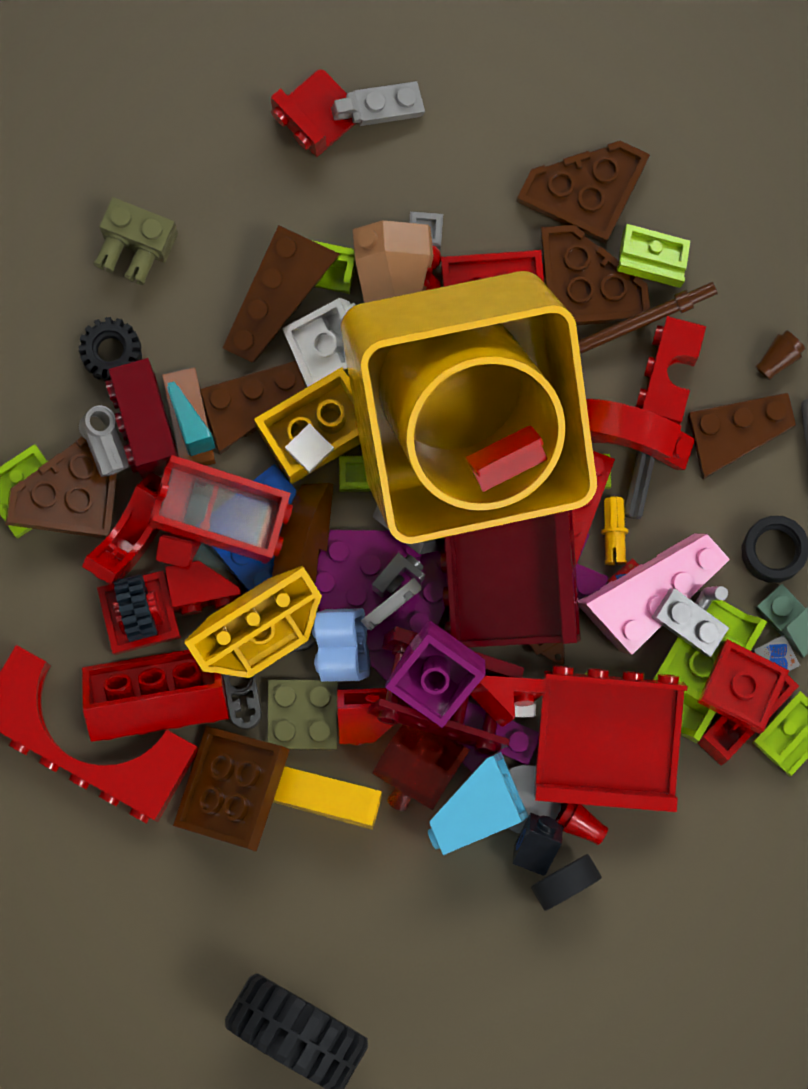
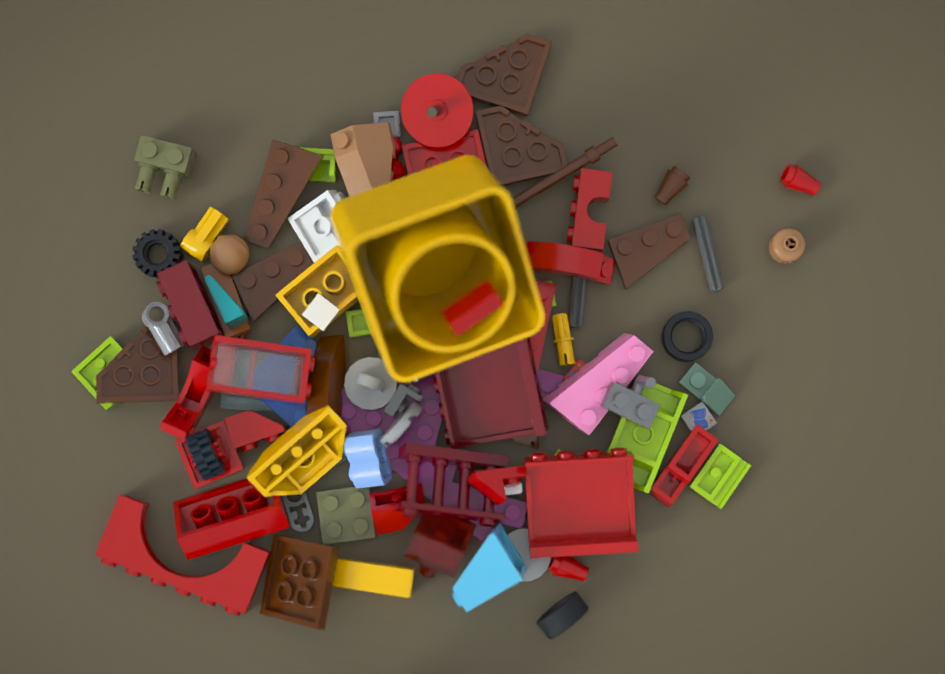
camera: 10 degrees left, 5 degrees up
(168, 341) = (199, 240): none -> yellow piece
(176, 550) = (230, 405): red slope -> none
(202, 361) = (229, 254): none -> medium nougat hair
(309, 112) = (289, 43): red bracket -> none
(359, 549) = (369, 384): none -> light grey tile
(380, 104) = (338, 31): light grey hinge -> none
(436, 674) = (442, 475): magenta slope -> none
(493, 217) = (437, 110): none -> red piece
(538, 844) = (537, 589): black brick -> none
(653, 255) = (564, 121): lime plate -> none
(743, 686) = (676, 448): red plate -> none

